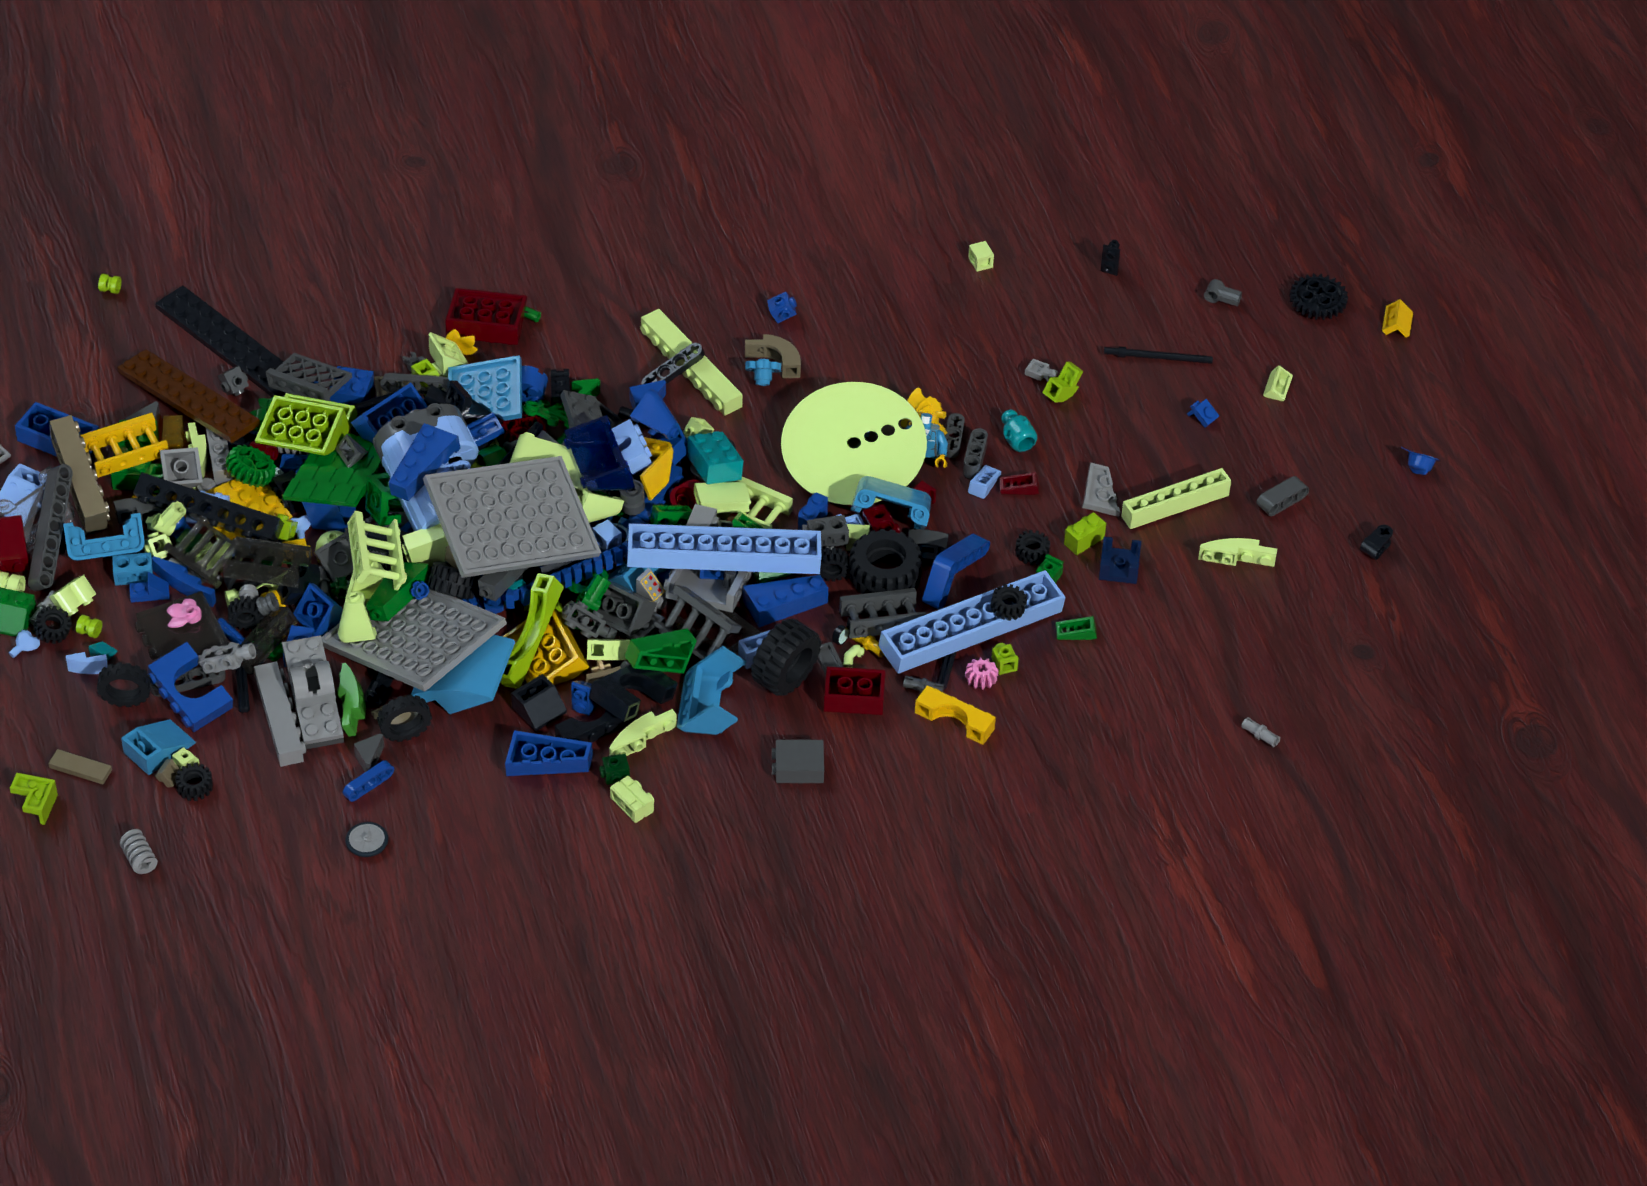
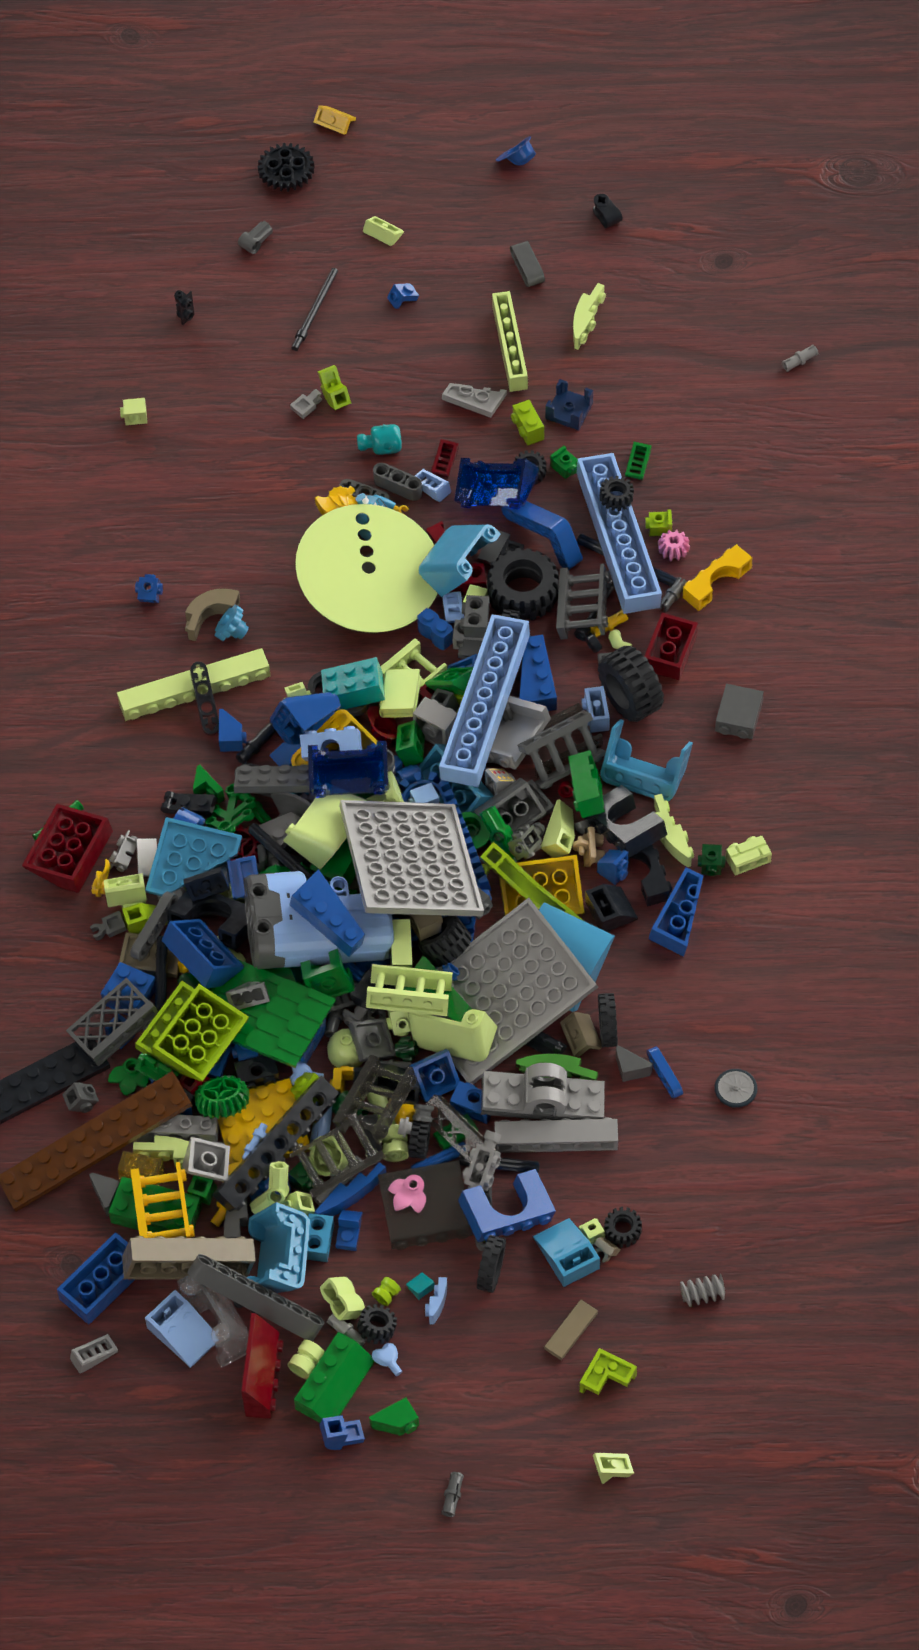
camera: 70 degrees left, 10 degrees up
(490, 353) = (120, 858): none -> light grey hinge
(994, 517) = (495, 483): none -> clear blue windscreen

